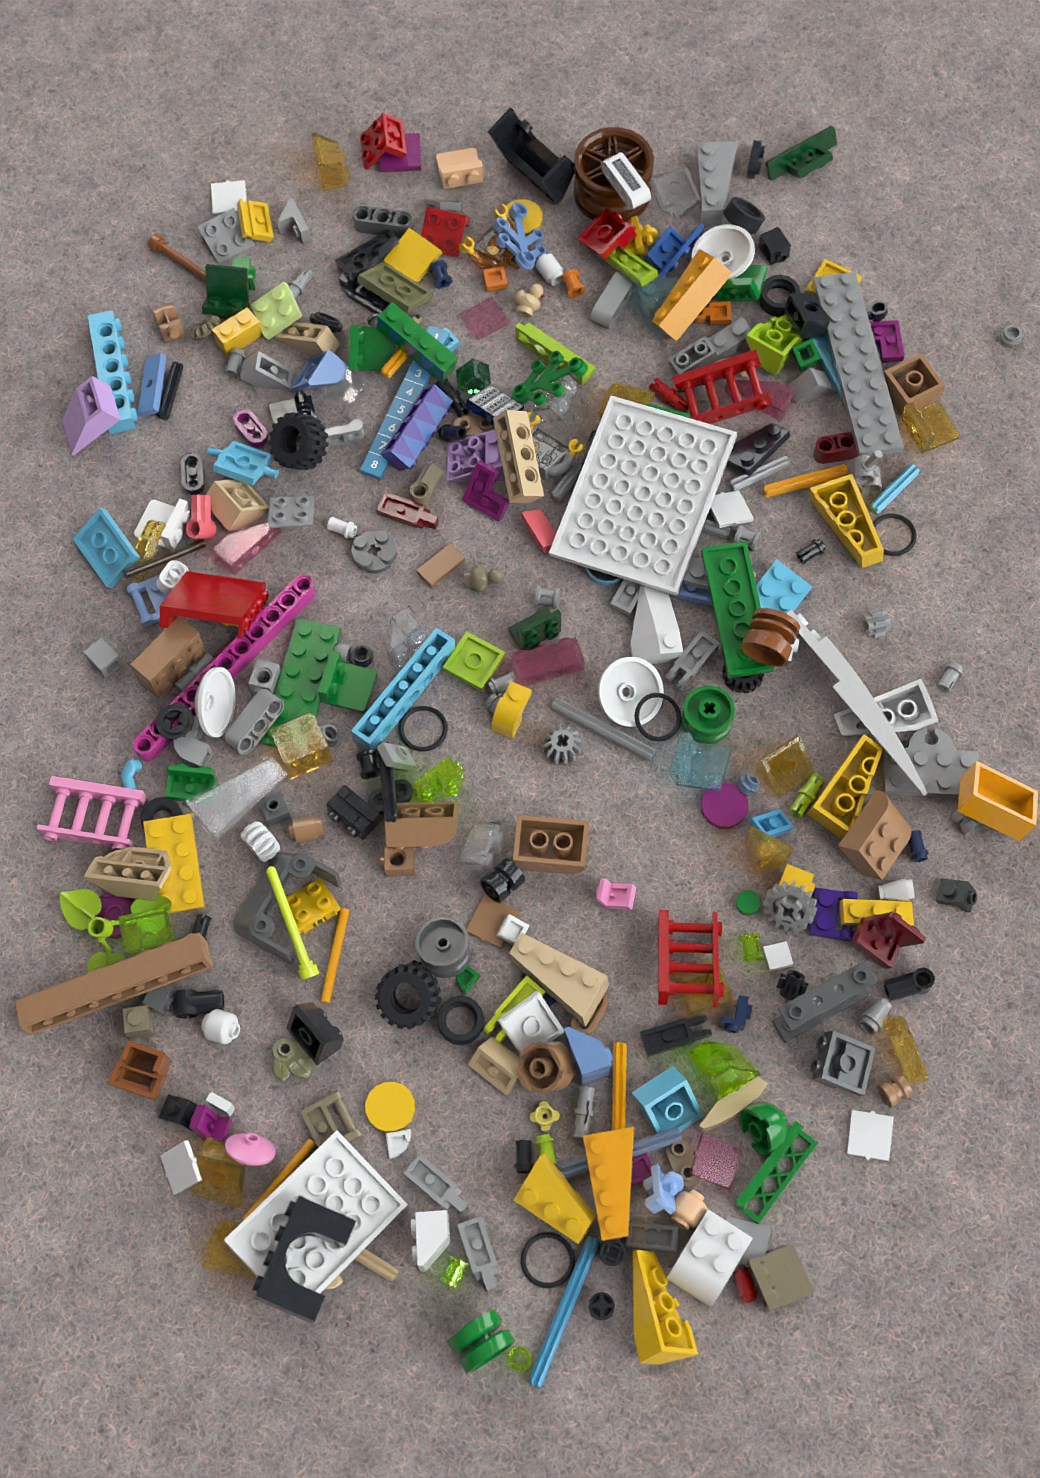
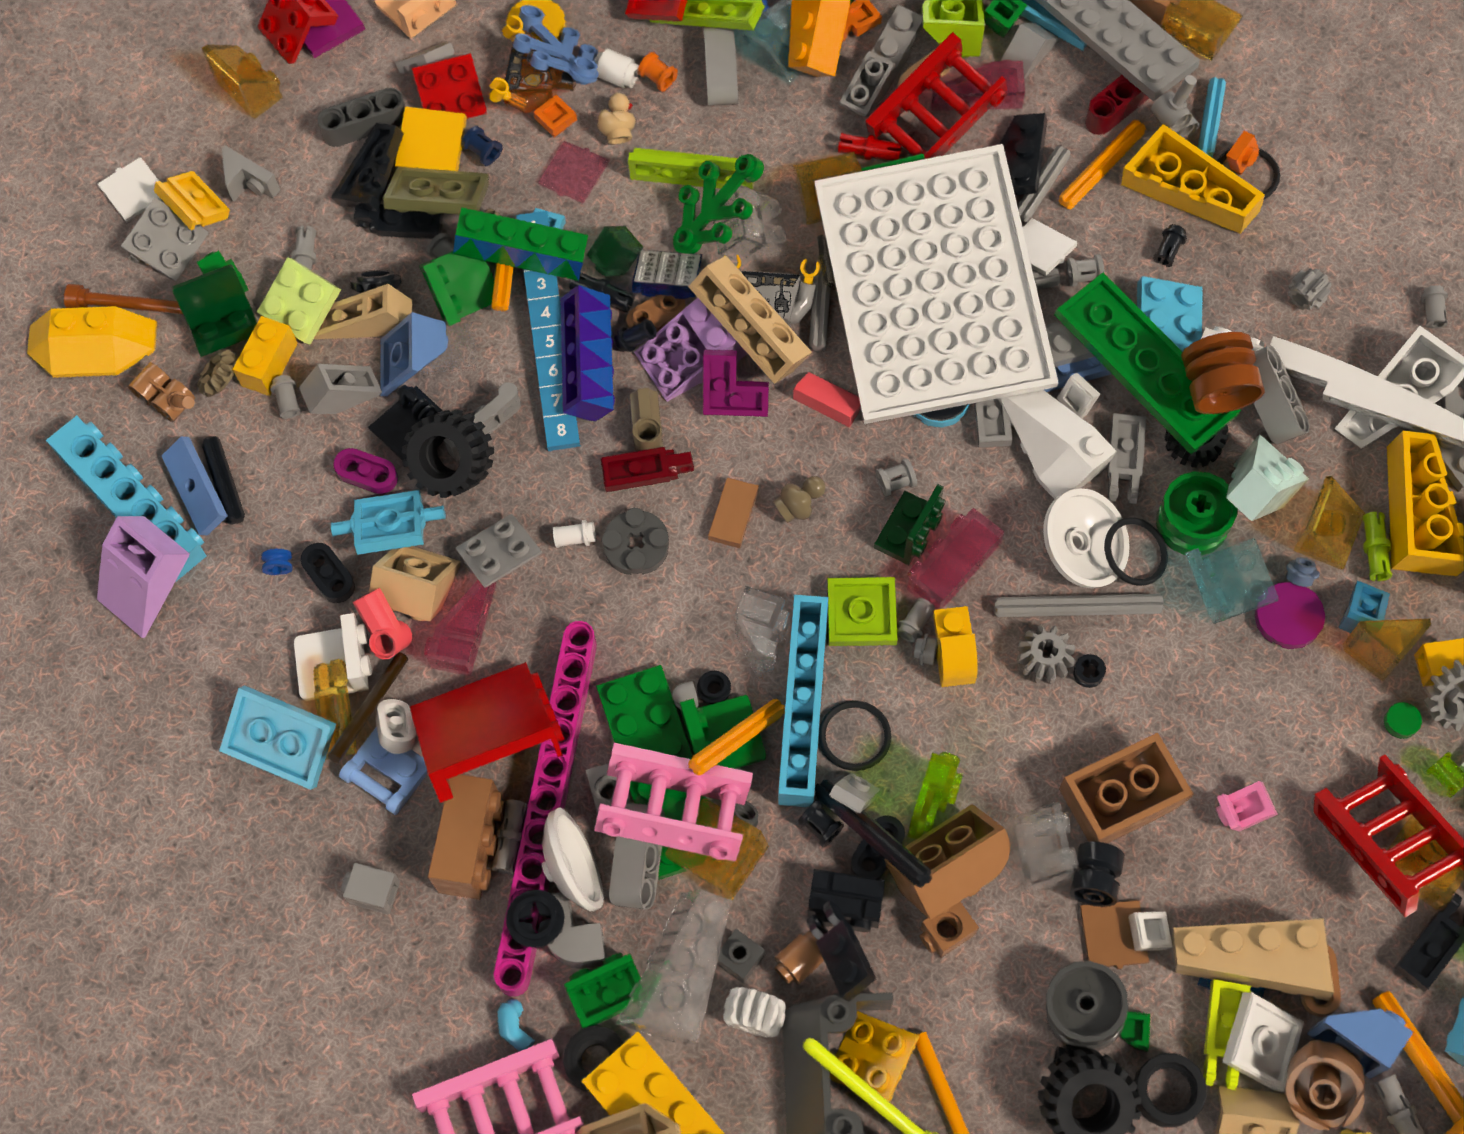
camera: 30 degrees left, 0 degrees up
(149, 273) = (90, 341): none -> yellow wedge
(169, 452) = (276, 562): none -> blue bush
(299, 685) = (673, 773): none -> bright pink fence
(325, 833) = (842, 952): none -> black hinge
(347, 687) = (736, 737): none -> light orange axle
(582, 761) = (1100, 671): none -> black bush
(688, 609) = (1078, 395): none -> white tile
(758, 718) = (1264, 480): none -> light aqua wedge
(803, 672) = (1279, 406): none -> light grey beam
(895, 519) = (1243, 153): none -> orange plate

